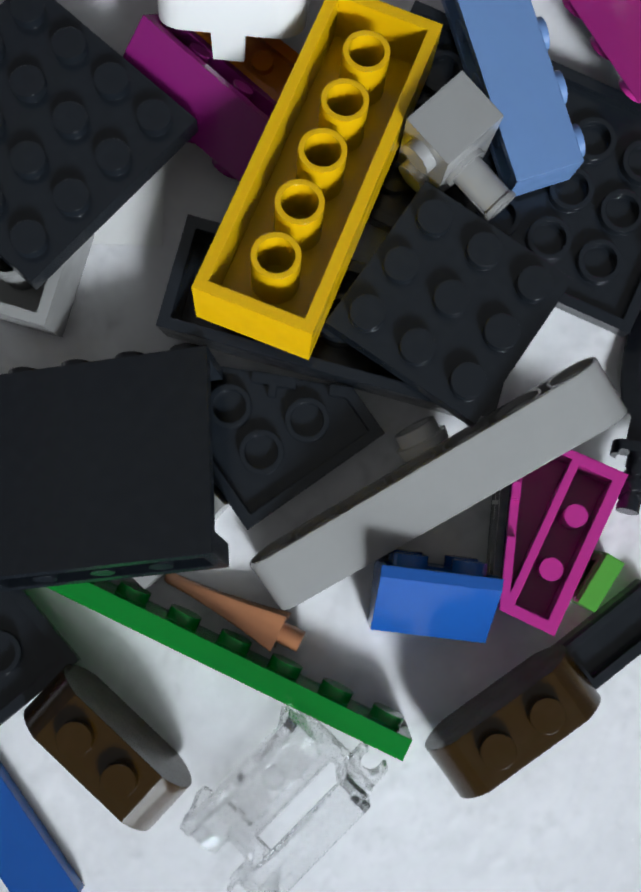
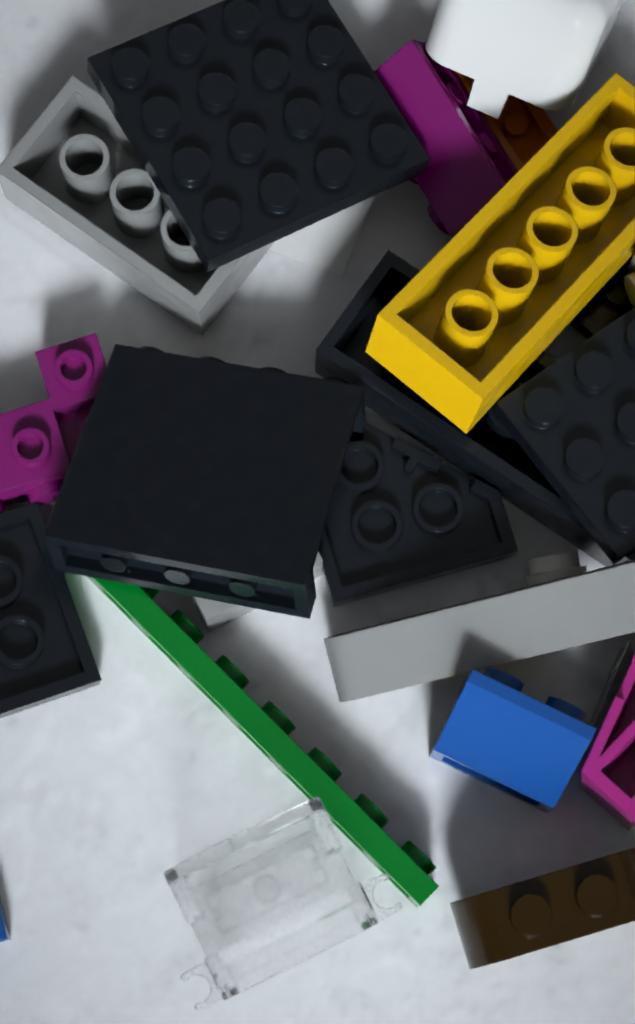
camera: 15 degrees right, 10 degrees down
(107, 747) = (103, 780): dark brown brick -> none
(258, 621) = (314, 712): nougat piece -> none

